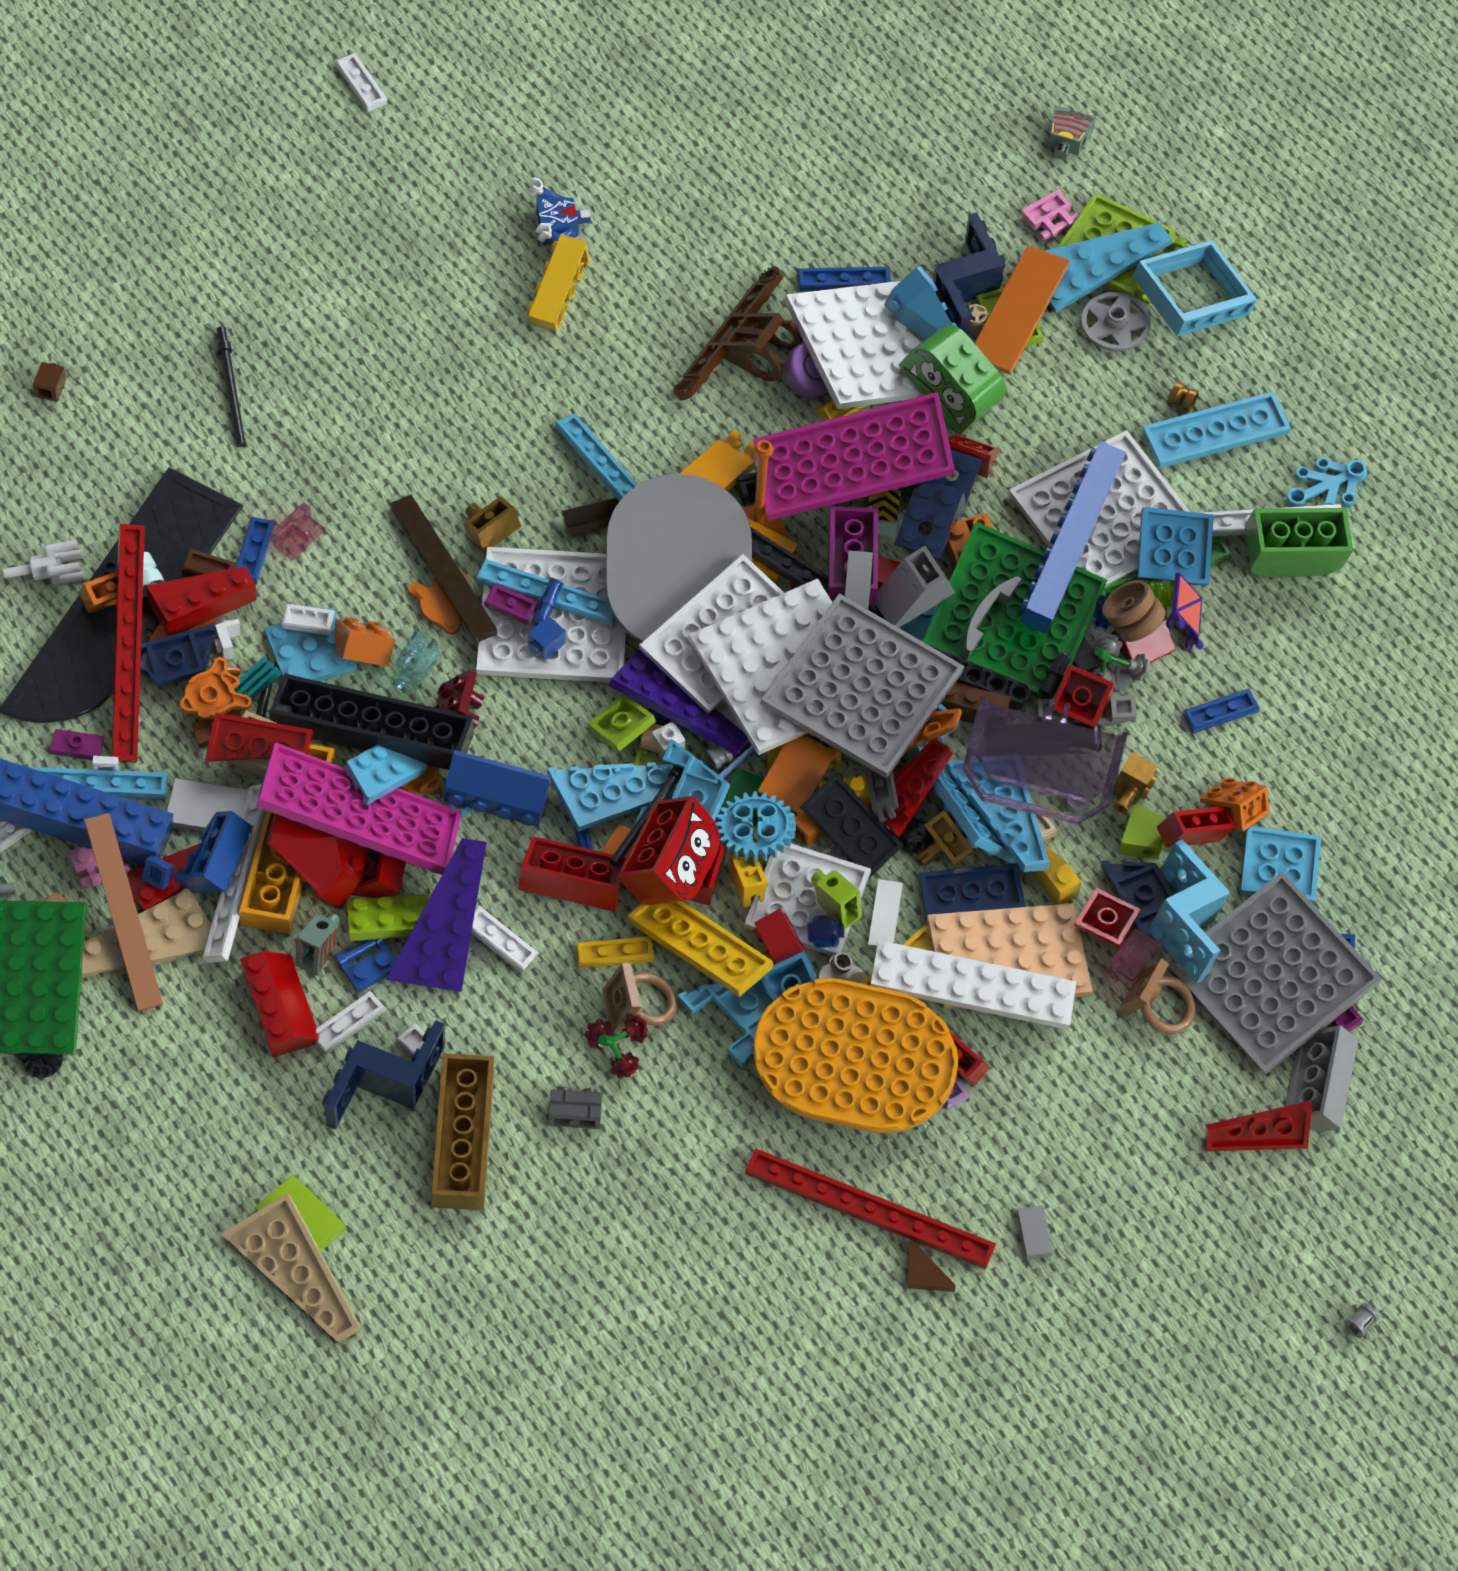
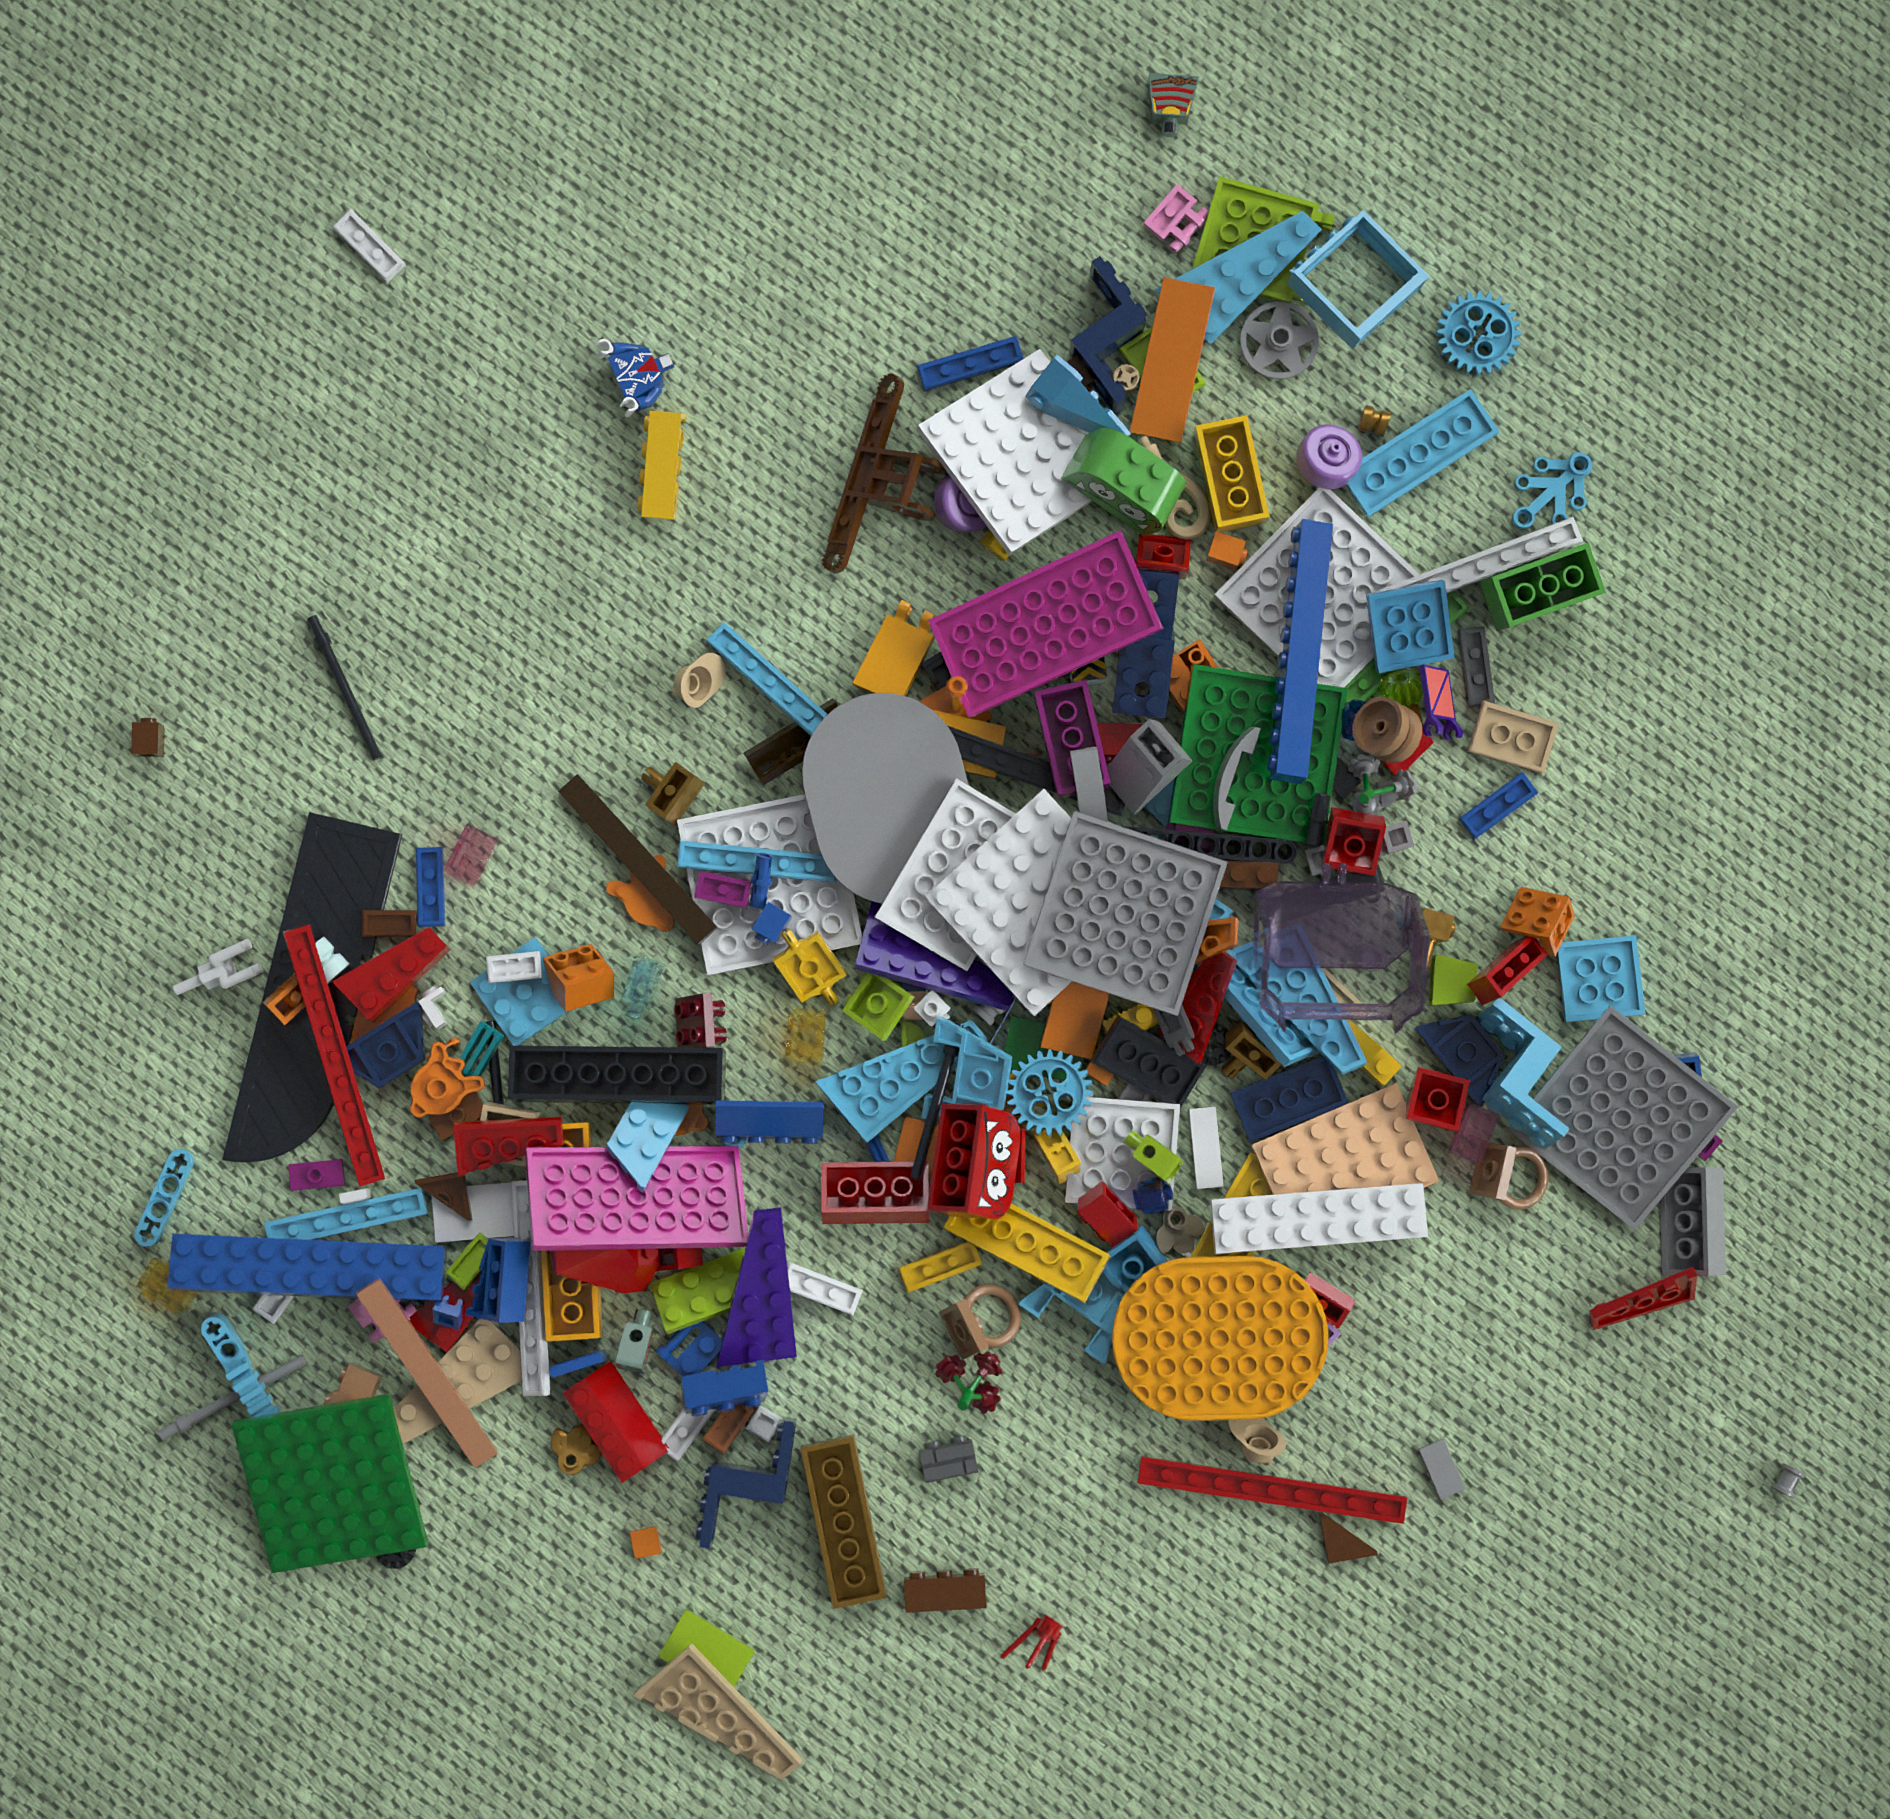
camera: 10 degrees left, 25 degrees up
(186, 841) = (466, 1266): none -> lime tile
(191, 780) = (450, 1191): none -> reddish brown tile
(234, 1018) = (577, 1445): none -> pearl gold plate
(259, 938) = (578, 1363): none -> blue tile
(274, 1111) = (645, 1542): none -> orange tile
(381, 1029) = (726, 1428): none -> dark orange plate
(389, 993) = (724, 1389): none -> blue wedge
(539, 1217) = (945, 1591): none -> reddish brown brick
(541, 447) = (700, 679): none -> tan piece
(550, 750) = (815, 1022): none -> clear yellow brick
(569, 682) = (809, 966): none -> yellow plate
(623, 1274) = (1048, 1631): none -> red plant
(866, 1160) = (1258, 1439): none -> tan piece
(994, 420) = (1199, 498): none -> tan plant
(1028, 460) = (1227, 551): none -> orange brick
(1047, 403) = (1231, 474): none -> yellow brick
(1136, 410) = (1329, 456): none -> medium lavender wheel
(1227, 601) = (1476, 666): none -> dark grey tile
(1246, 659) = (1512, 737): none -> tan tile
(1307, 361) = (1497, 344): none -> medium azure gear

